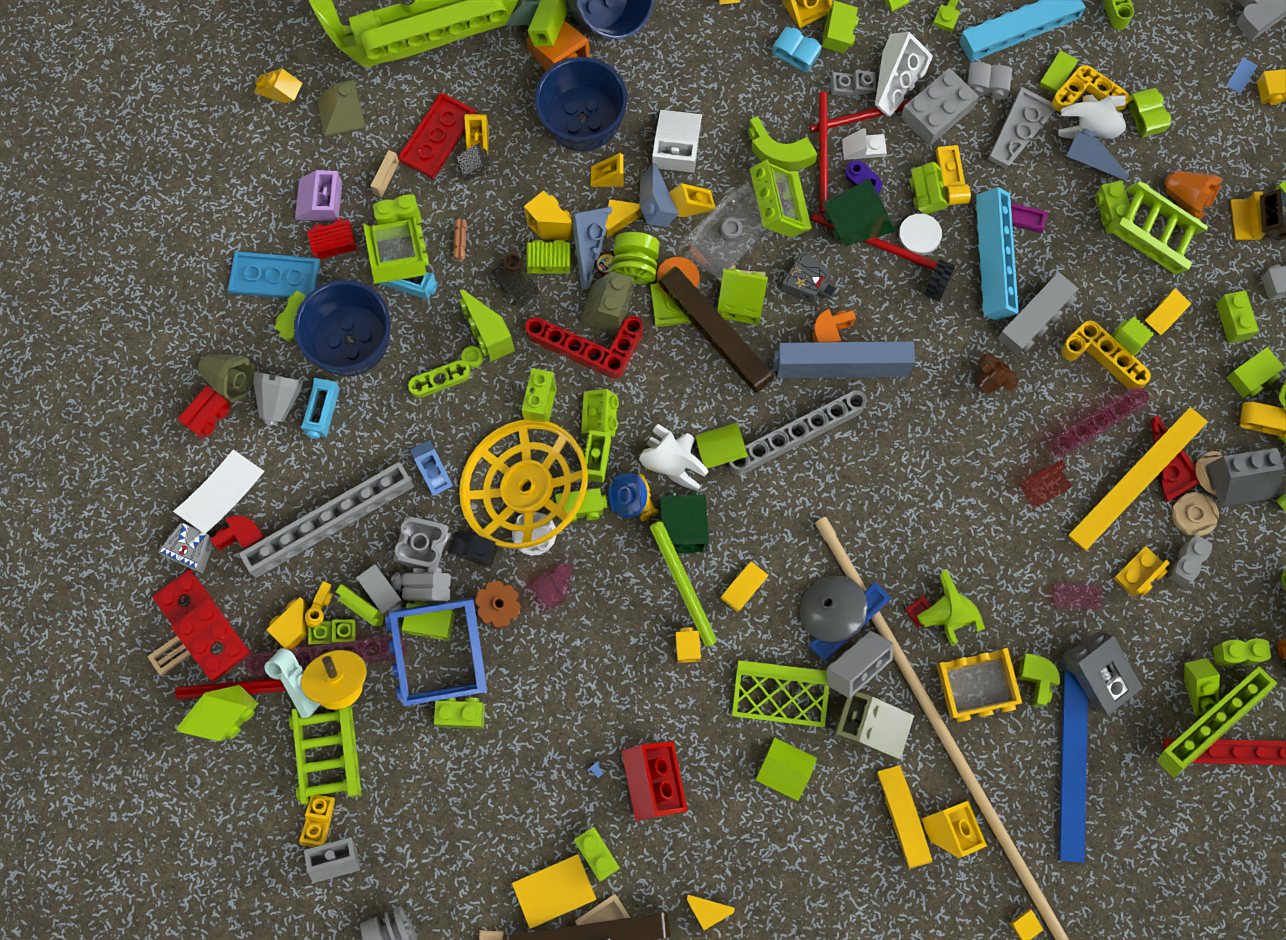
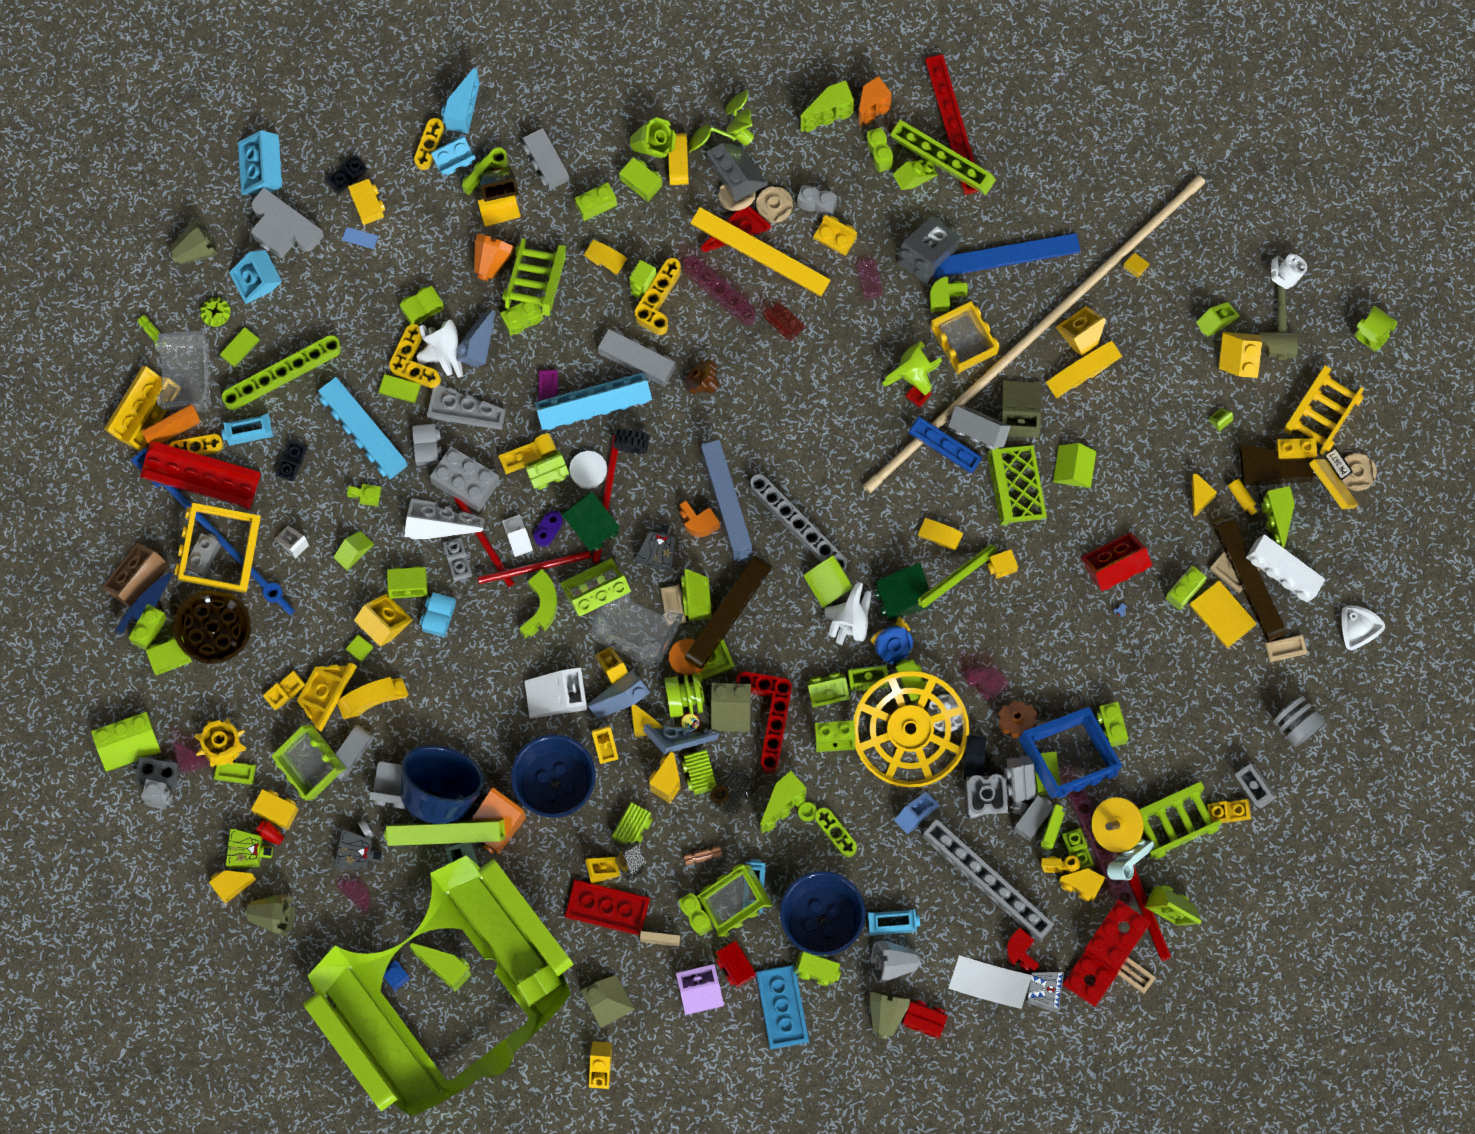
camera: 105 degrees left, 0 degrees up
(512, 177) = (632, 825): none -> lime brick
(731, 228) = (630, 625): light grey tile -> none
(841, 618) = (934, 446): dark grey dish -> none

